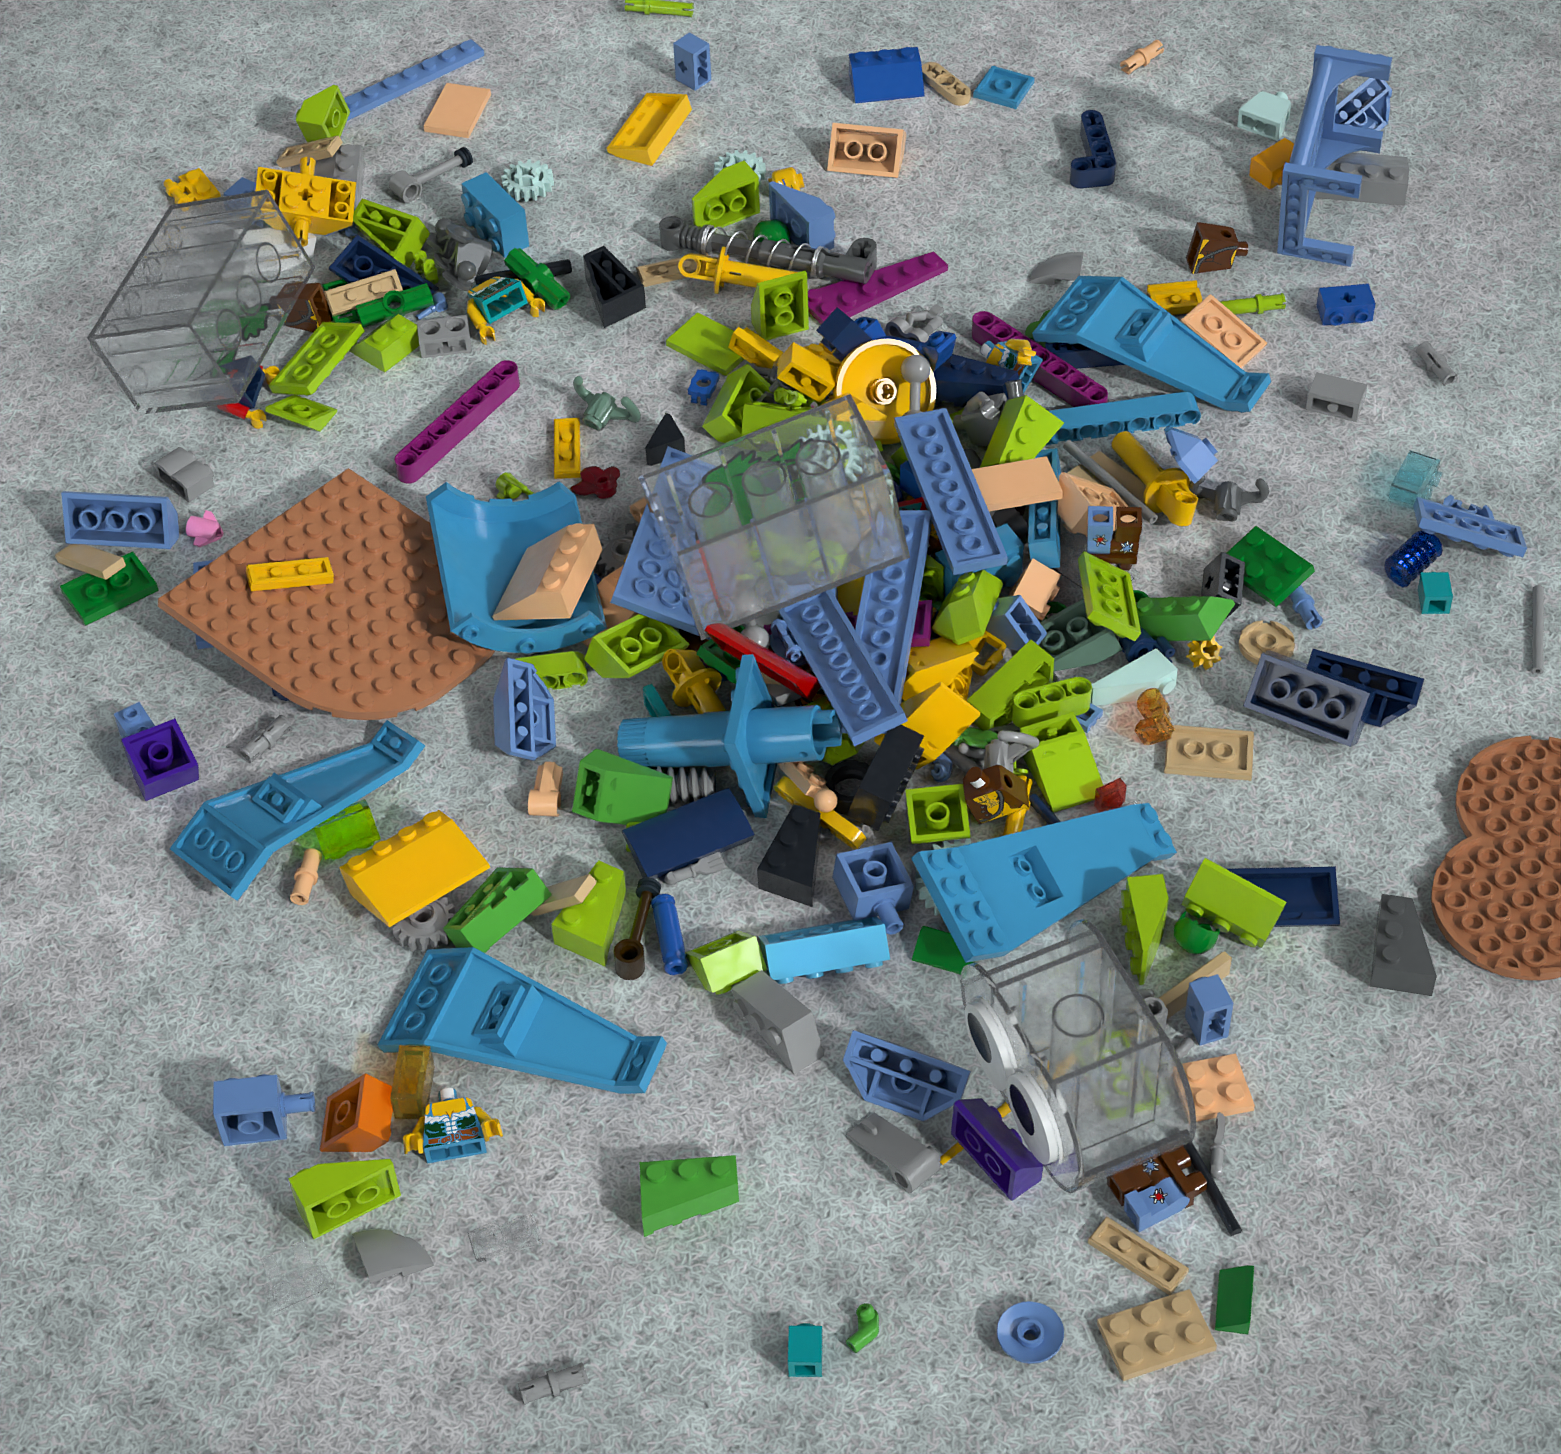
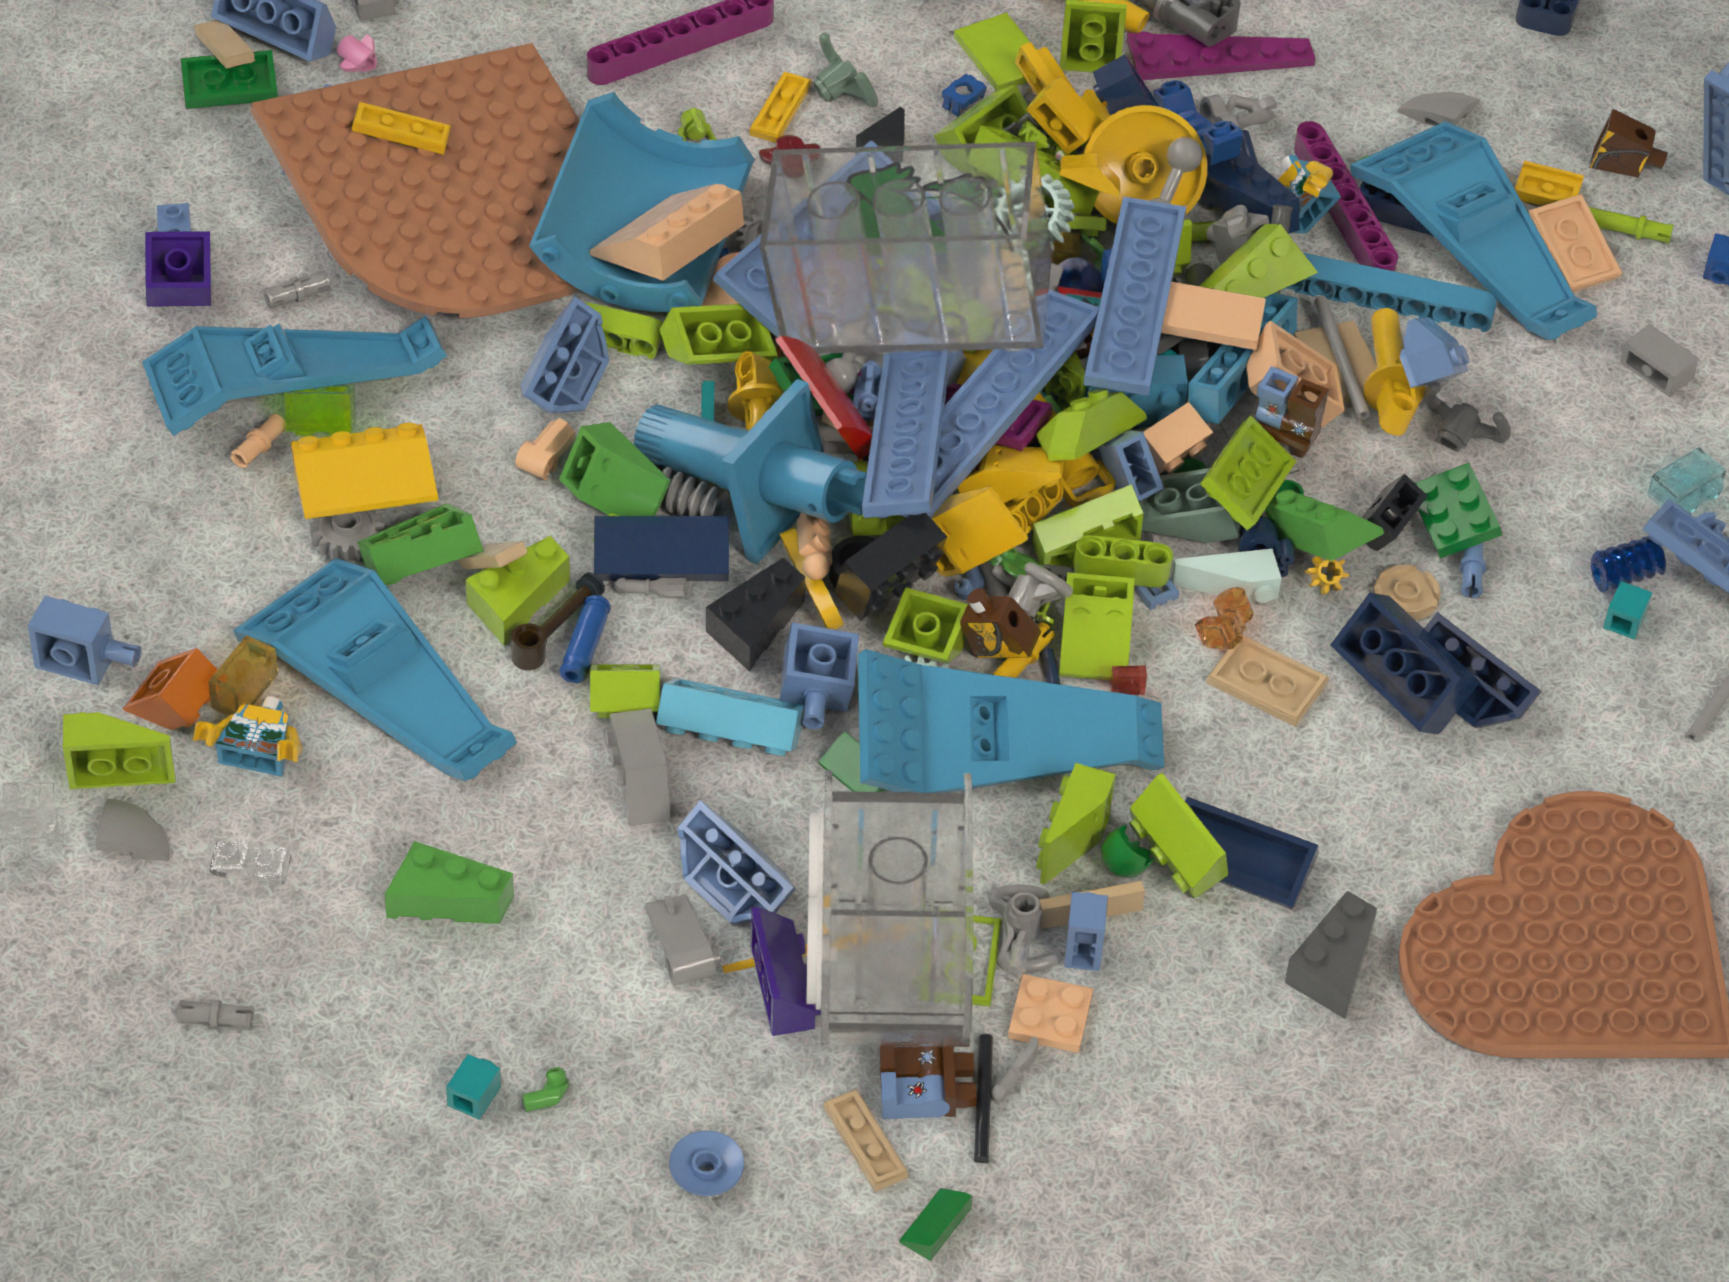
camera: 20 degrees right, 0 degrees up
(1156, 1334) = (835, 1221): tan plate -> none

